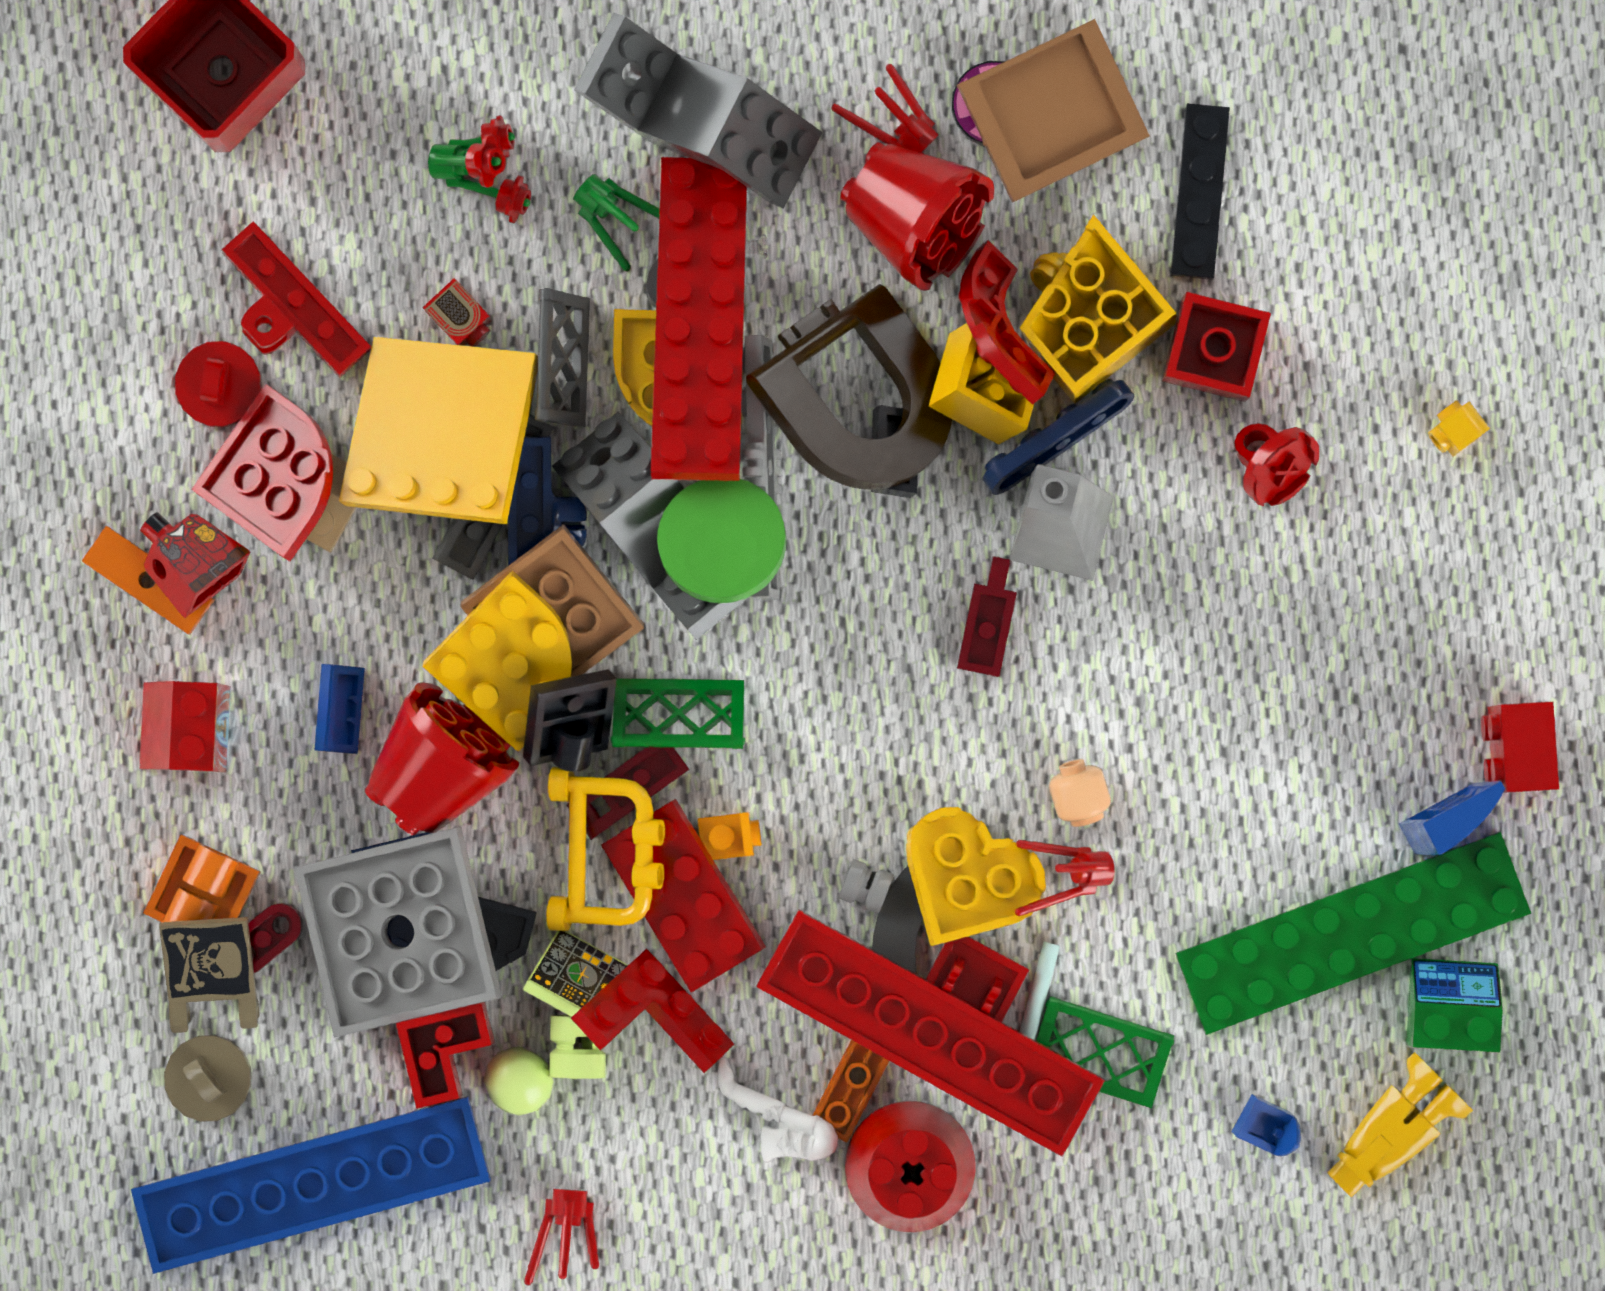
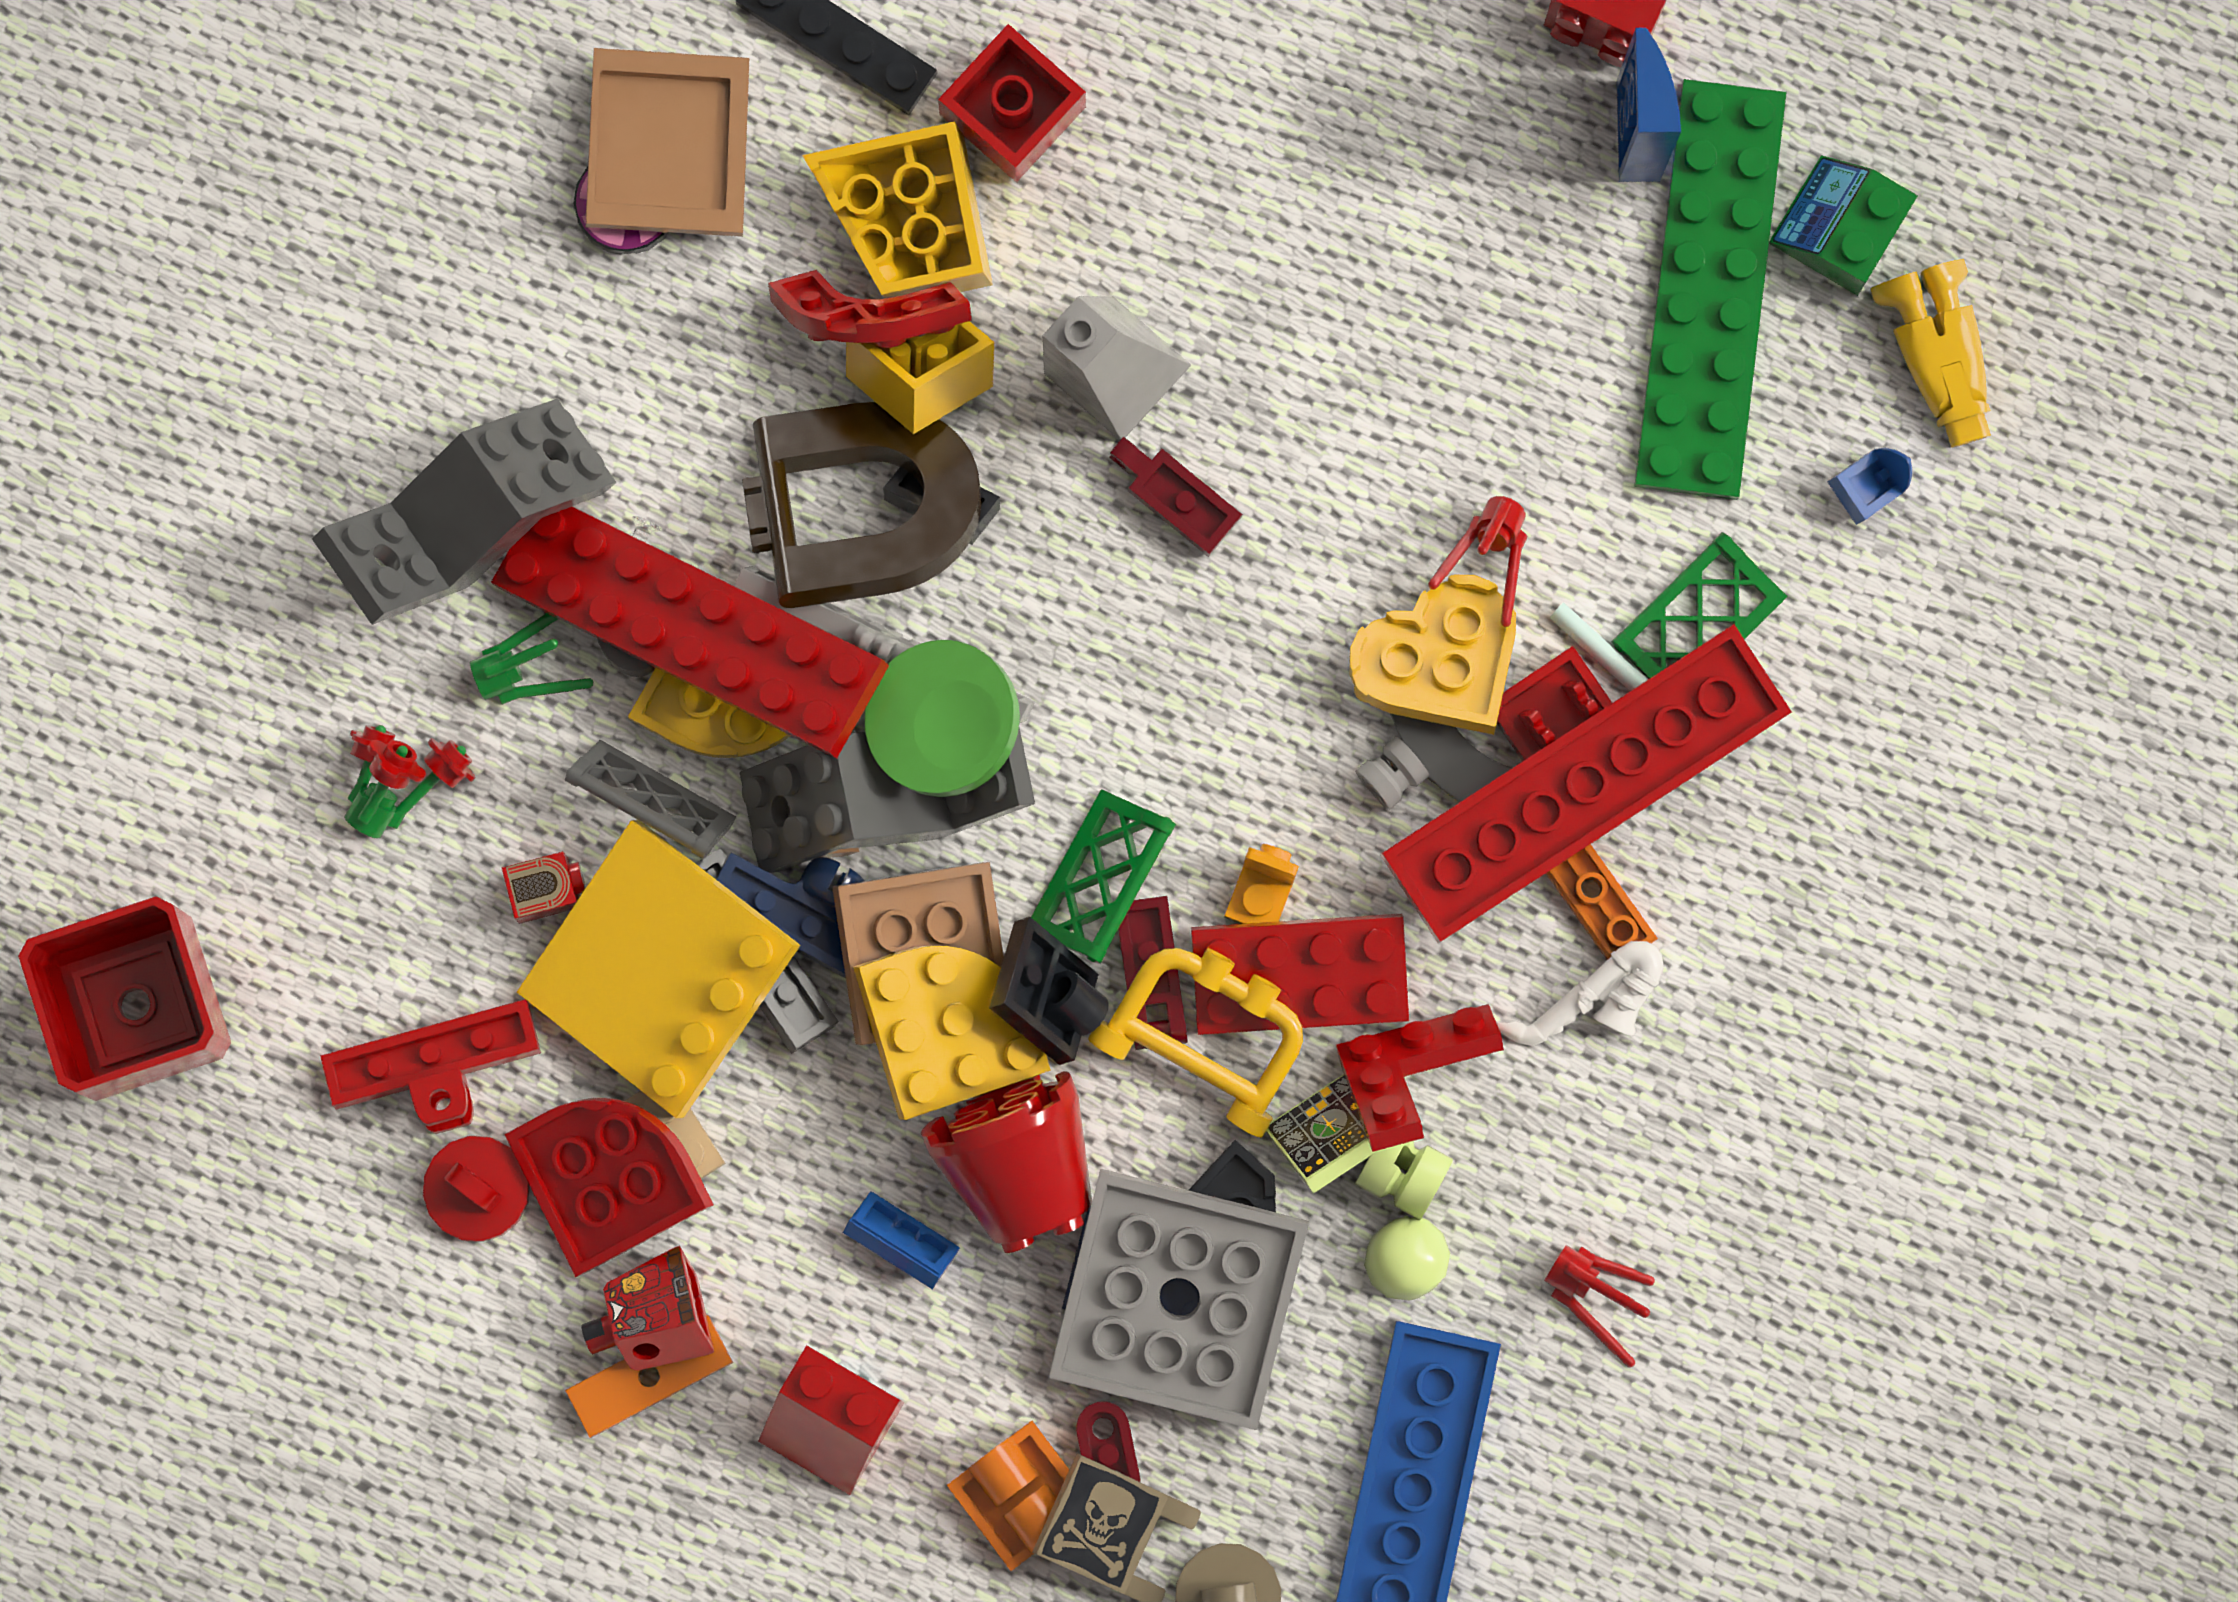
camera: 65 degrees left, 5 degrees down
(430, 1046) = (1319, 1328): red brick -> none
(913, 132) = (610, 300): red plant -> none
(915, 1135) = (1703, 914): red cone -> none
(917, 210) = (696, 336): red cone -> none
(1046, 268) = (833, 238): yellow plate -> none
(1070, 427) = (1015, 301): dark blue plate -> none
(1079, 793) = (1411, 494): light nougat head -> none
(1279, 465) = (1174, 105): red tile -> none

